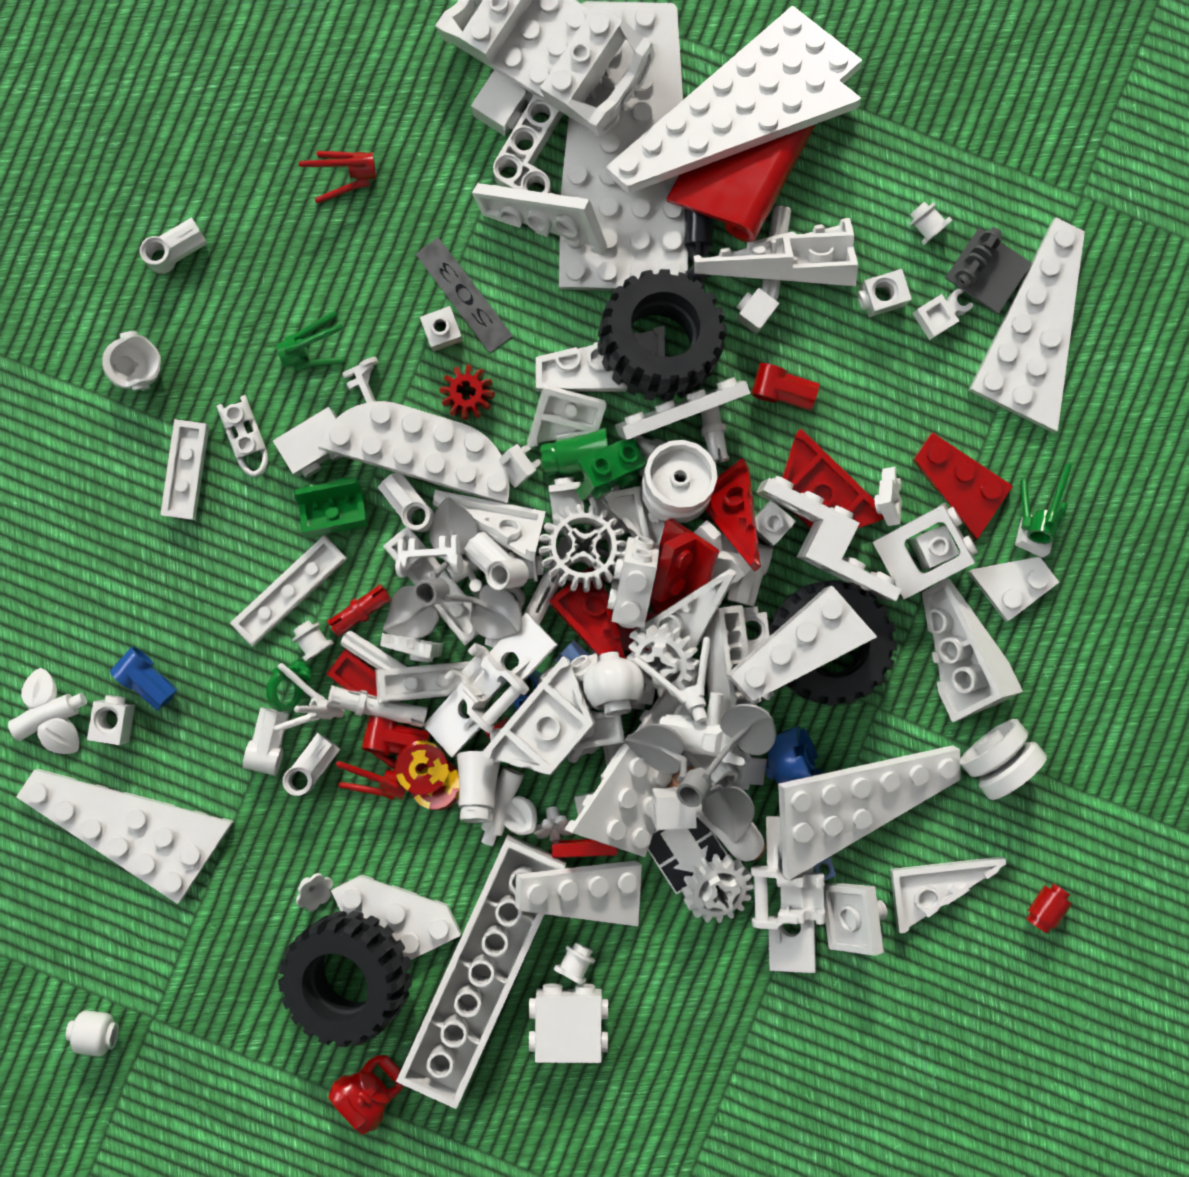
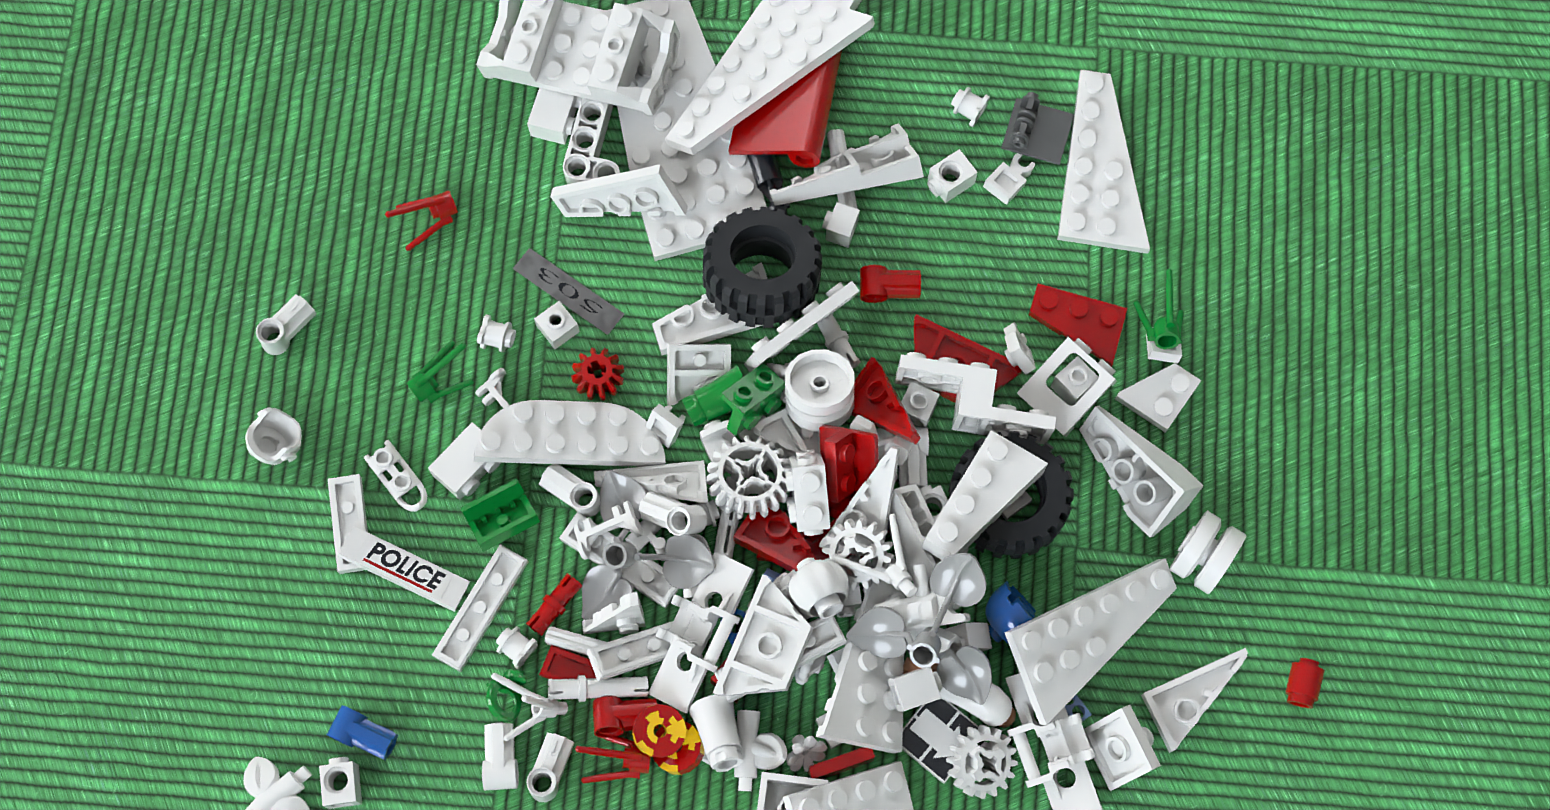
camera: 15 degrees left, 15 degrees down
(224, 531) = (403, 568): none -> white tile
(378, 320) = (496, 334): none -> white brick

